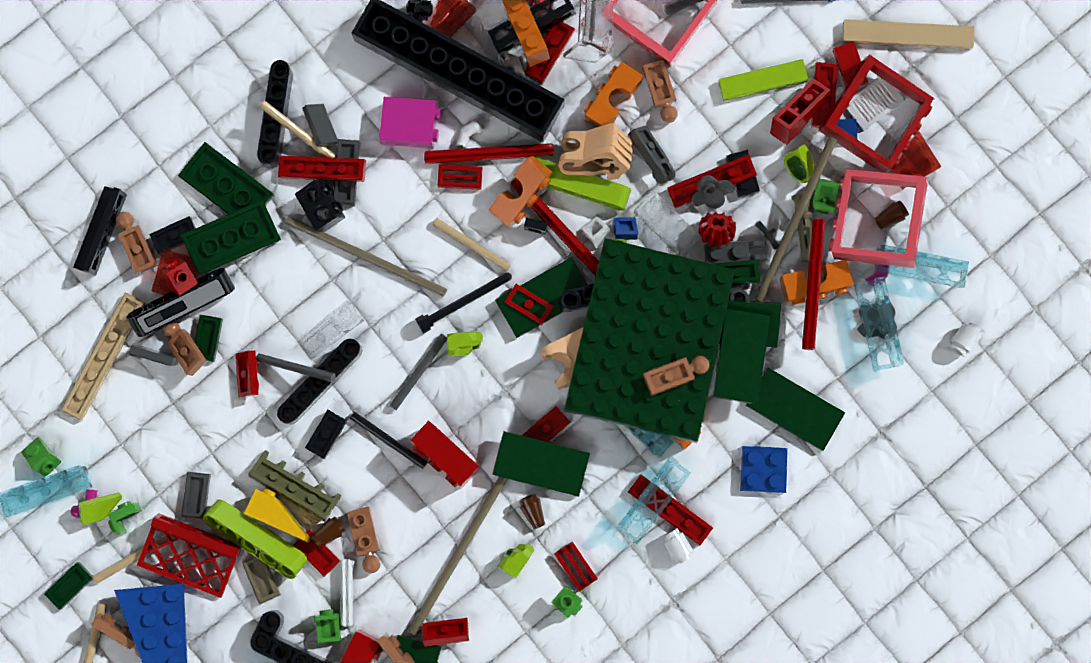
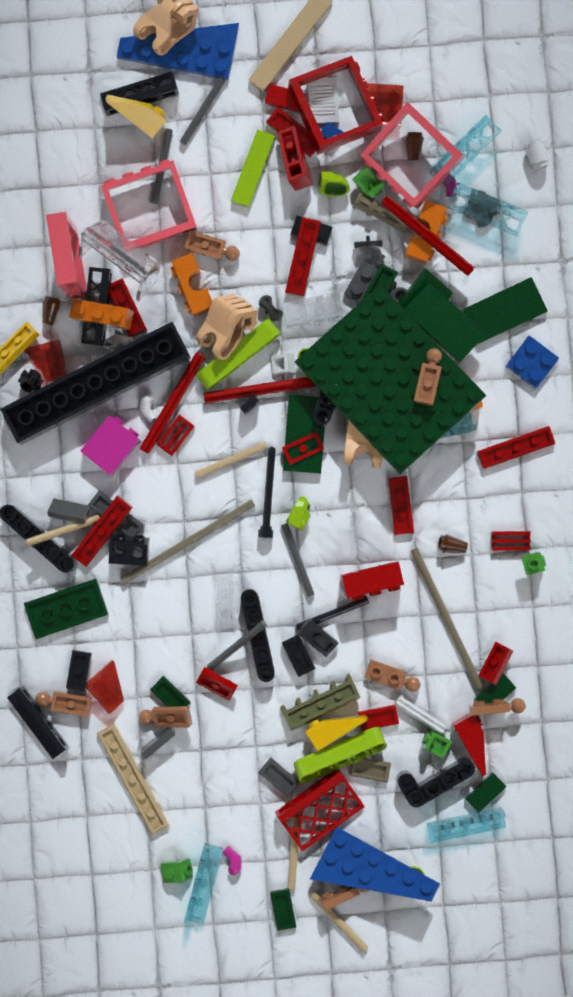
camera: 55 degrees left, 5 degrees up
(98, 508) = (242, 853): lime tile -> none
(125, 511) = (256, 834): bright green bracket -> none
(173, 307) = (132, 697): beam -> none
(178, 276) = (113, 686): red brick -> none
(230, 237) = (108, 630): dark green tile -> none
(327, 532) = (370, 700): reddish brown cone -> none
(355, 440) = (317, 637): none -> black plate
(515, 559) = (478, 579): lime rock -> none
(533, 177) = (214, 382): orange arch -> none
(541, 463) = (422, 516): dark green tile -> none
(625, 228) = (294, 342): blue plate -> none
(643, 177) = (266, 303): none -> pearl dark grey piece
(644, 498) = (496, 457): clear light blue fence -> none
(652, 154) = (254, 285): dark grey hinge -> none
(677, 546) = (545, 459): white brick -> none
(712, 192) = (311, 262): dark grey plate -> none
(717, 229) = (340, 276): red gear -> none
(795, 219) = (371, 215): dark tan piece -> none

